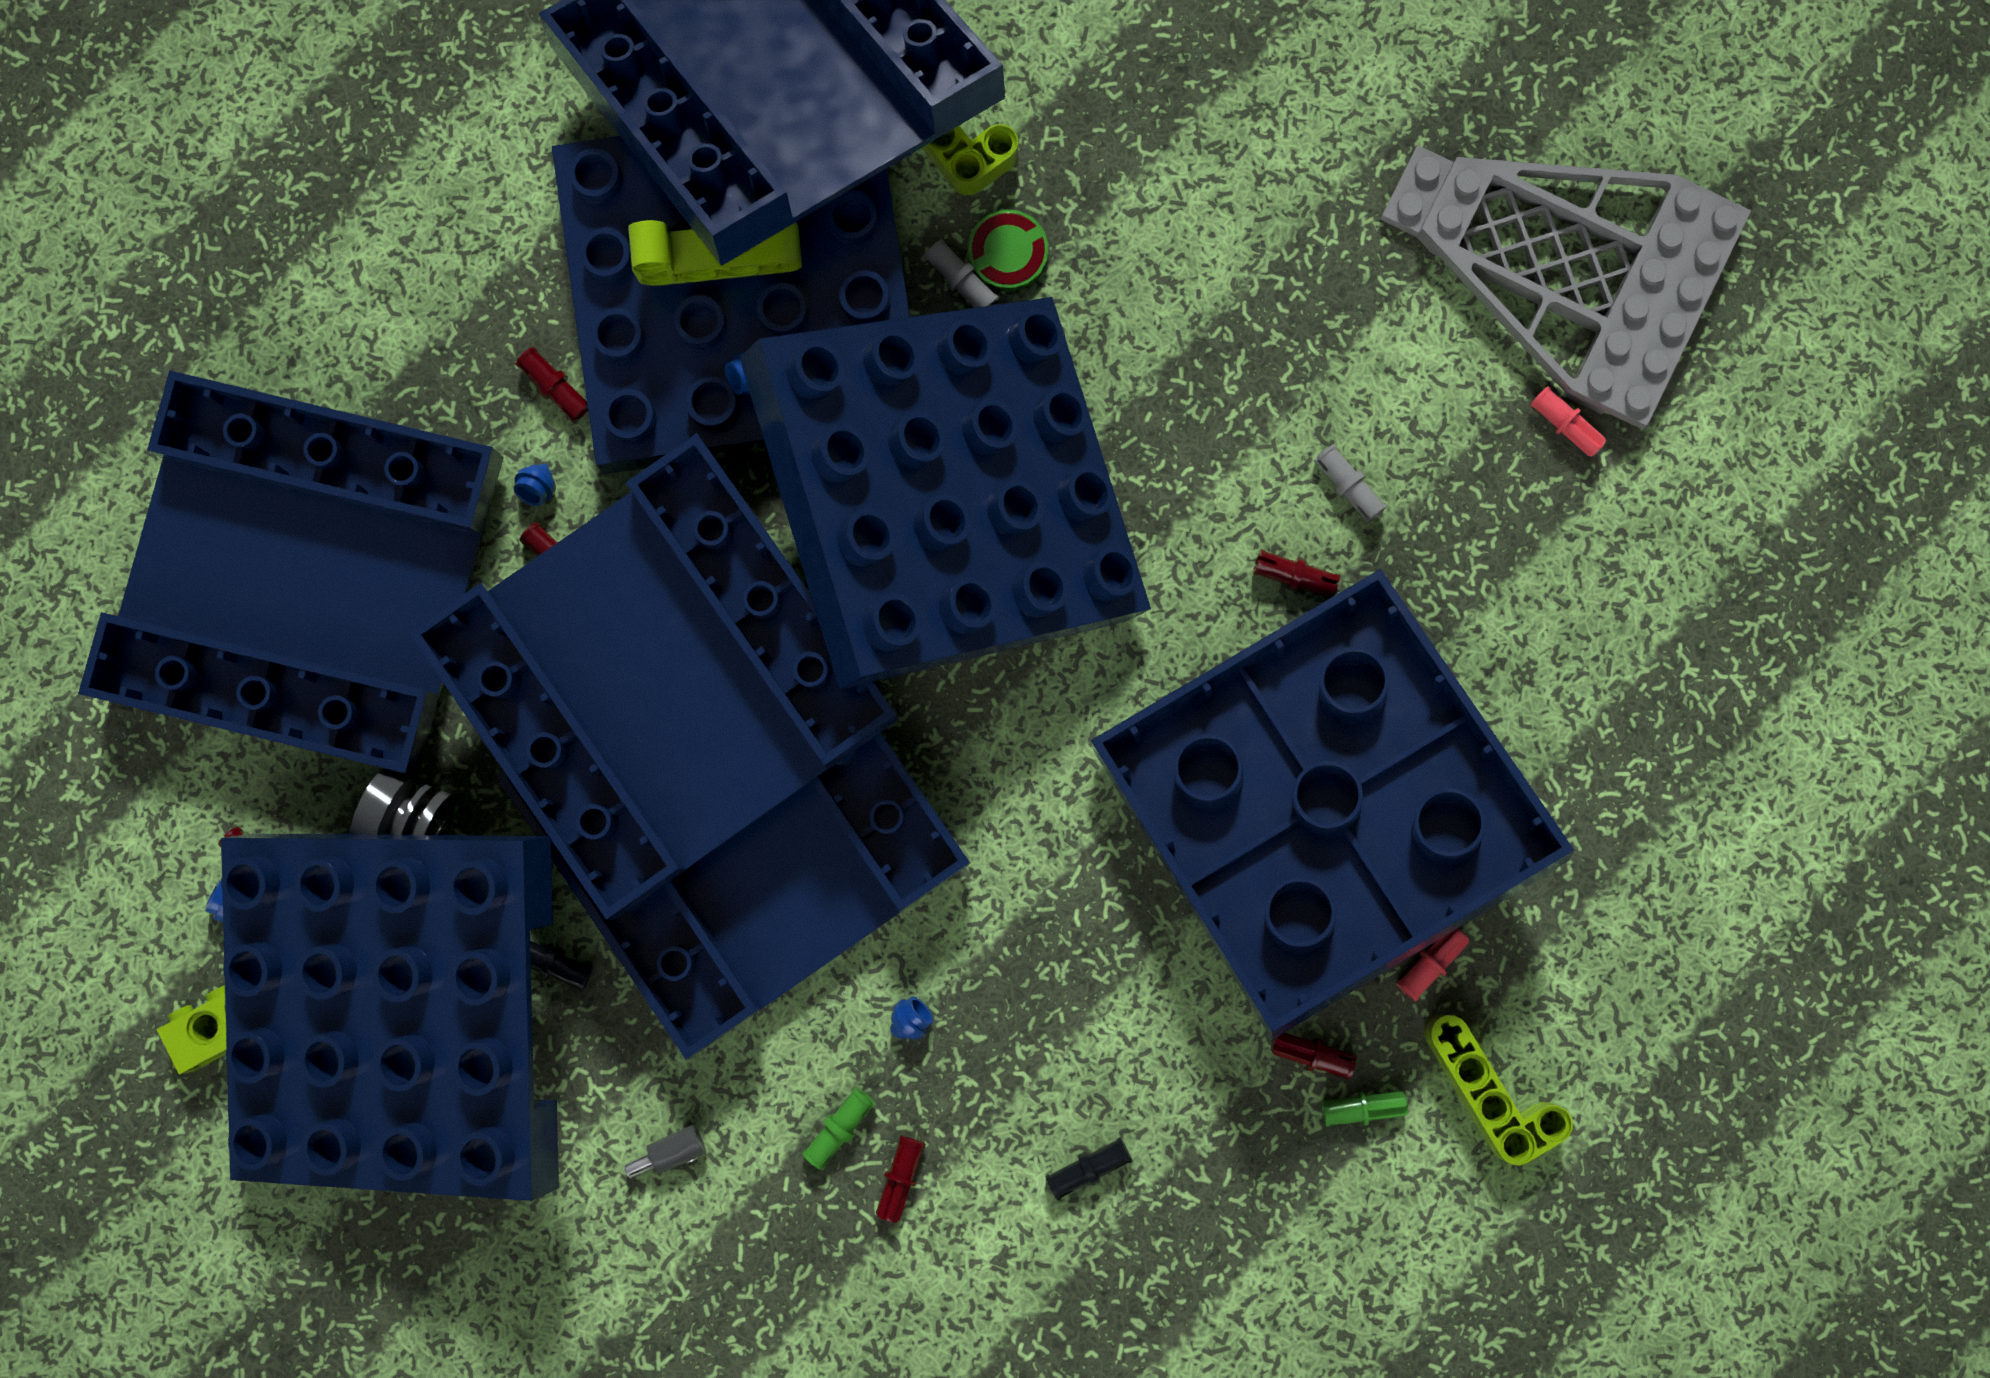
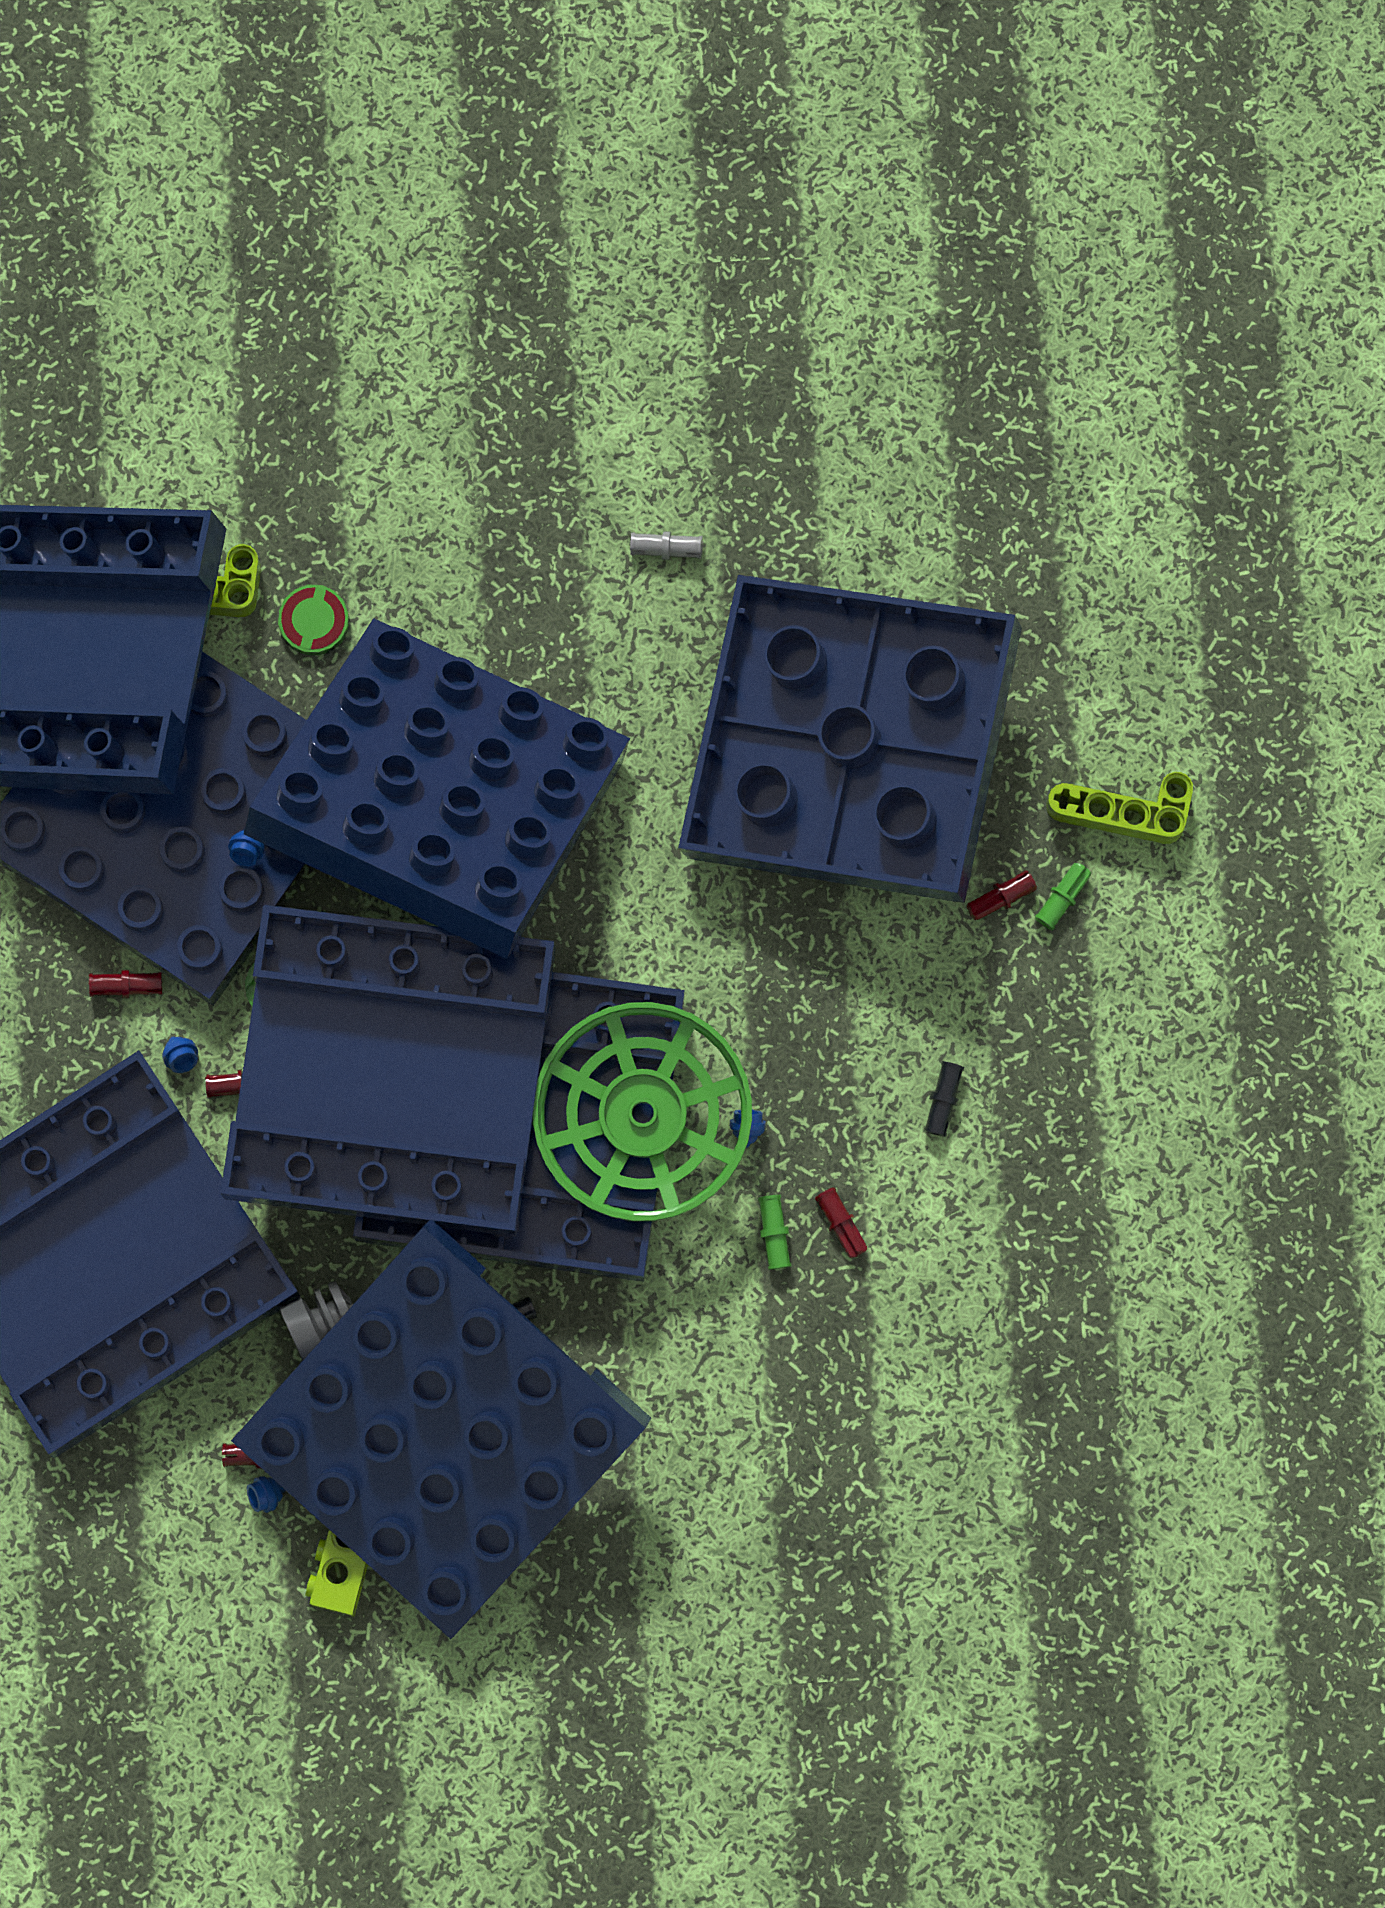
camera: 50 degrees left, 5 degrees down
(669, 1152) = (690, 1353): dark grey piece -> none
(681, 256) = (137, 814): lime beam -> none
(798, 933) = (639, 1087): none -> bright green dish
(960, 275) = (303, 664): light grey pin -> none
(1296, 574) = (692, 631): dark red pin -> none
(1433, 963) = (1013, 771): coral axle -> none
(1568, 422) = (754, 377): coral axle -> none
(1656, 299) = (729, 254): light grey wing -> none

